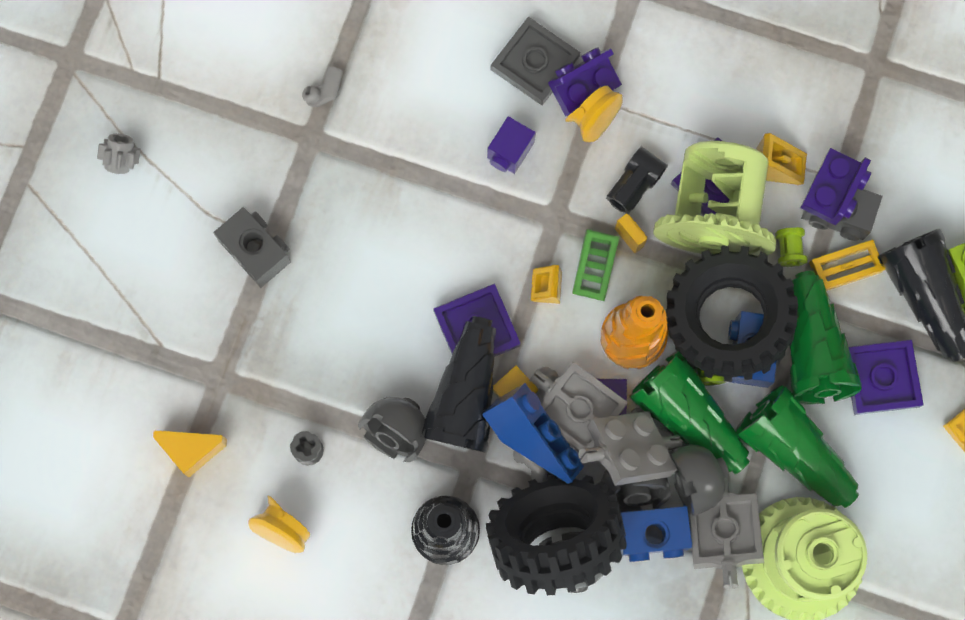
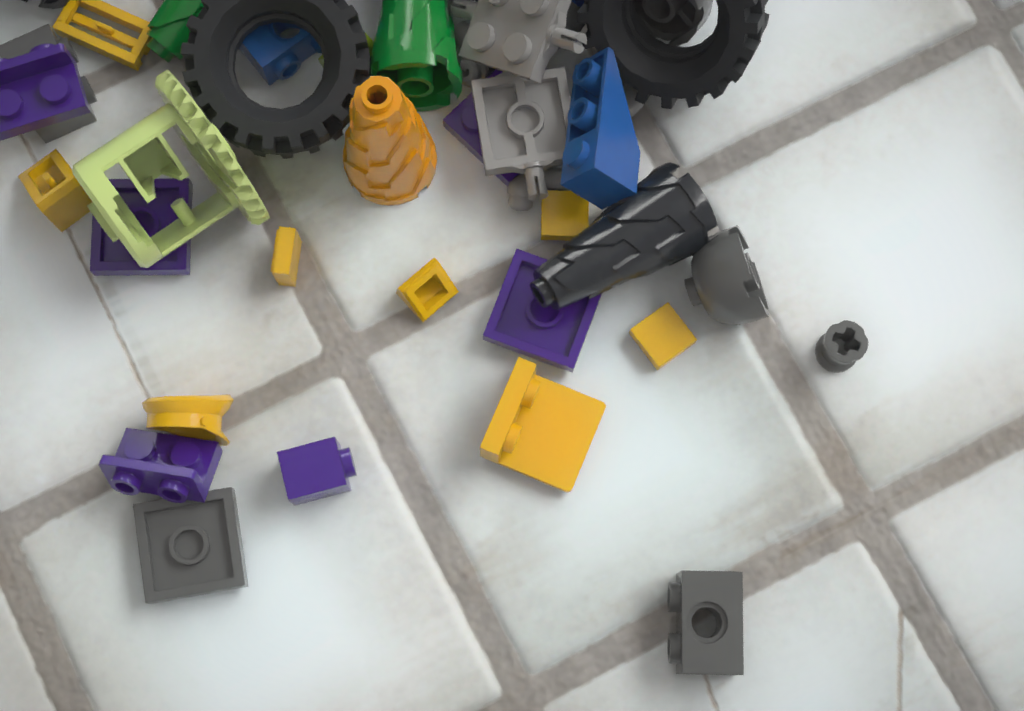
camera: 135 degrees left, 0 degrees up
(190, 450) = (971, 460): yellow slope -> none
(280, 528) = (943, 286): yellow piece -> none
(405, 372) = (662, 336): none -> yellow tile
(421, 267) = (541, 428): none -> yellow bracket
(447, 544) = (773, 129): black cone -> none
(603, 238) = (346, 287): bright green slope -> none
(639, 175) = (208, 309): black piece -> none
(791, 247) = (138, 93): lime bush -> none

